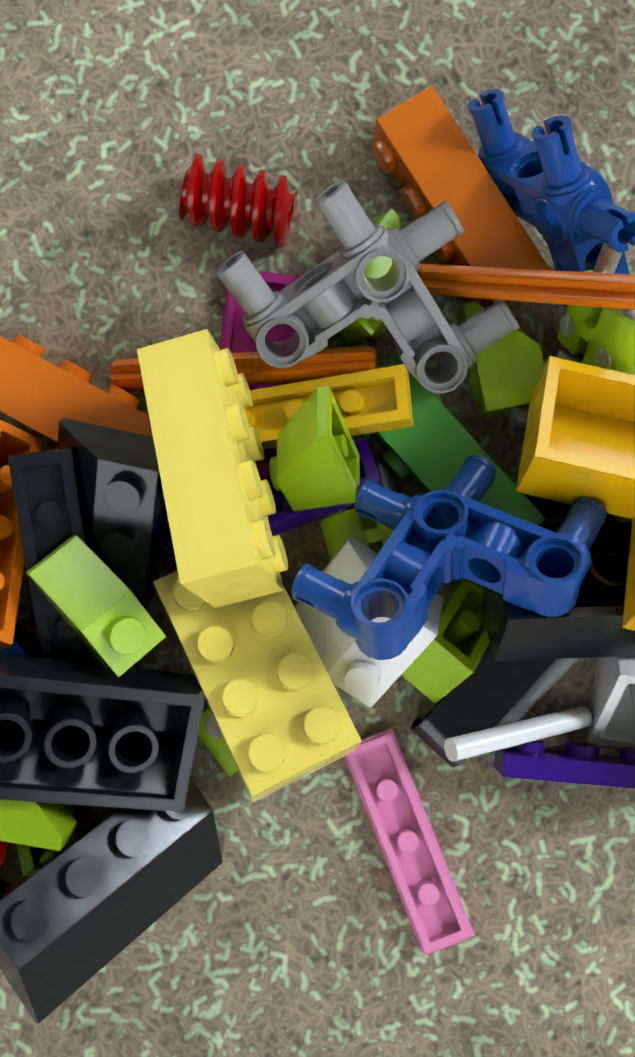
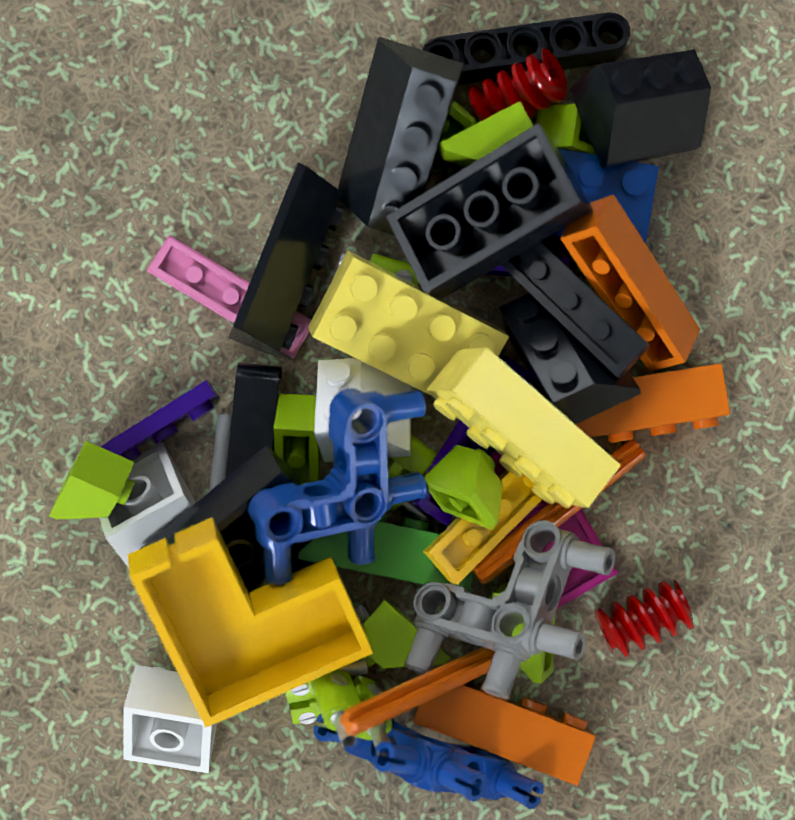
camera: 140 degrees right, 0 degrees up
(96, 605) = (529, 297): lime slope -> none
(325, 840) = (286, 263): none -> black slope
(517, 733) = (214, 414): white bar -> none

